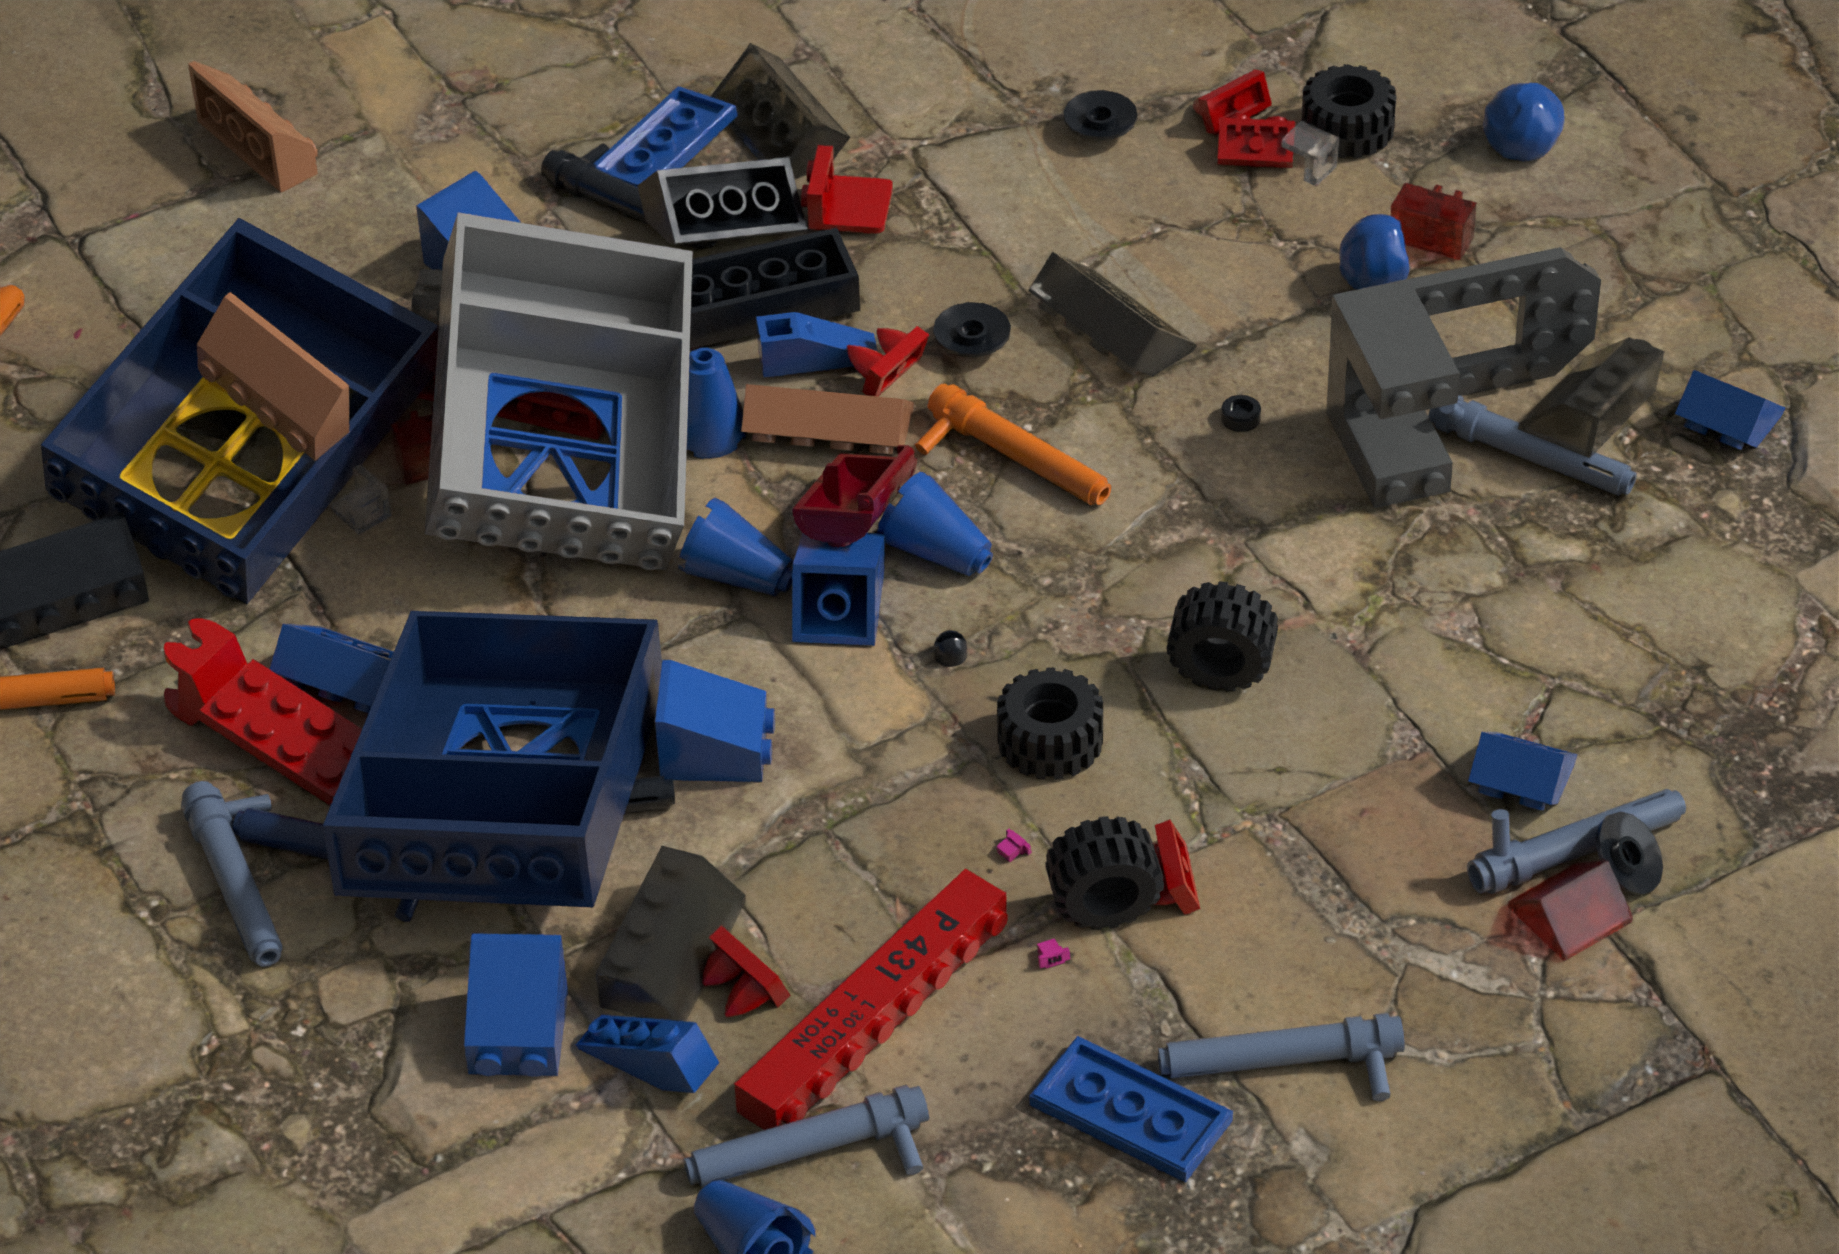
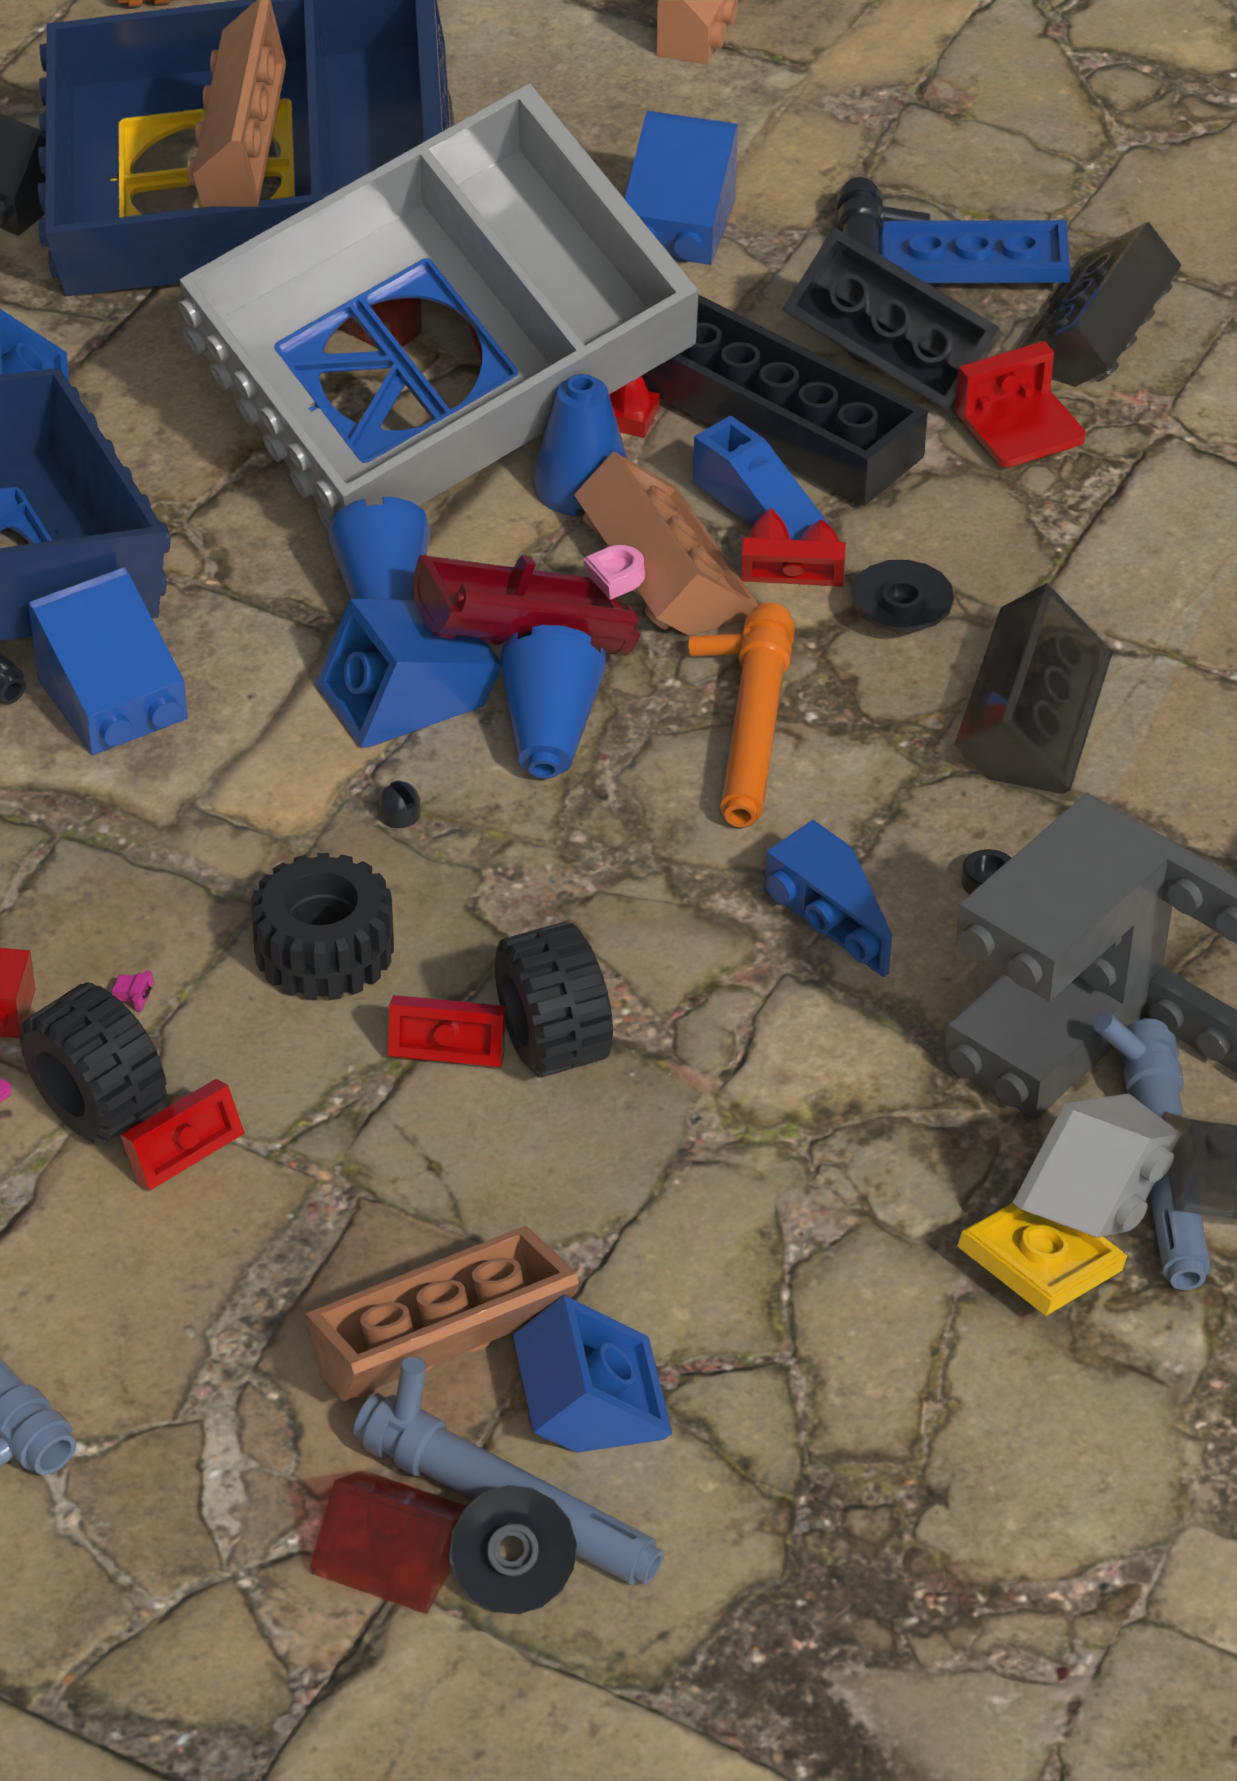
camera: 55 degrees right, 0 degrees up
(848, 439) = (616, 569): none -> bright pink tile
(1184, 706) = (446, 1031): none -> red tile
(1210, 482) = (827, 887): none -> blue slope
(1441, 800) = (437, 1311): none -> nougat slope
(1546, 464) = (1099, 1165): none -> light grey slope
(1566, 531) = (1040, 1257): none -> yellow plate

